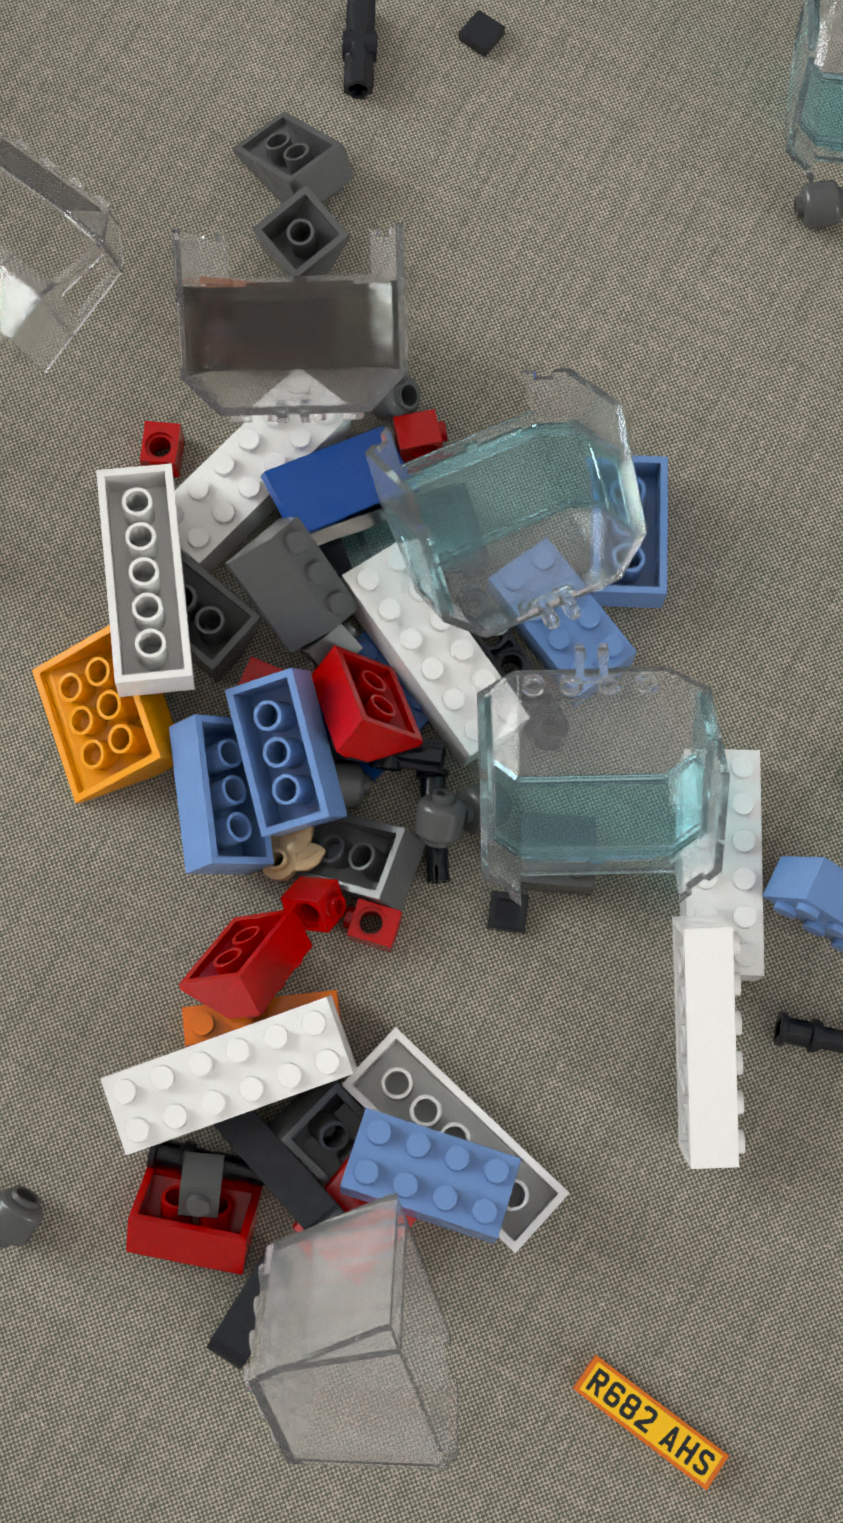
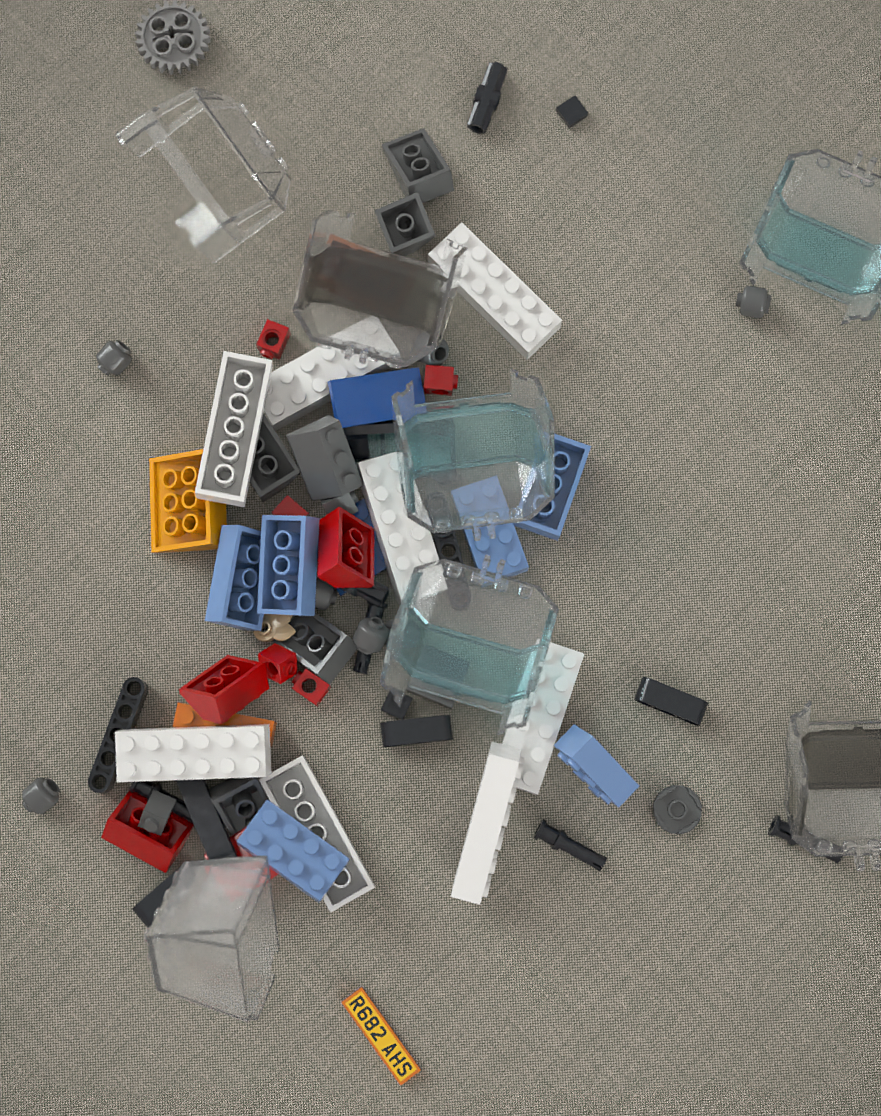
camera: 15 degrees right, 5 degrees up
(97, 1068) = (117, 722): none -> black beam
(471, 297) = (500, 294): none -> white brick
(550, 941) = (416, 731): none -> black beam

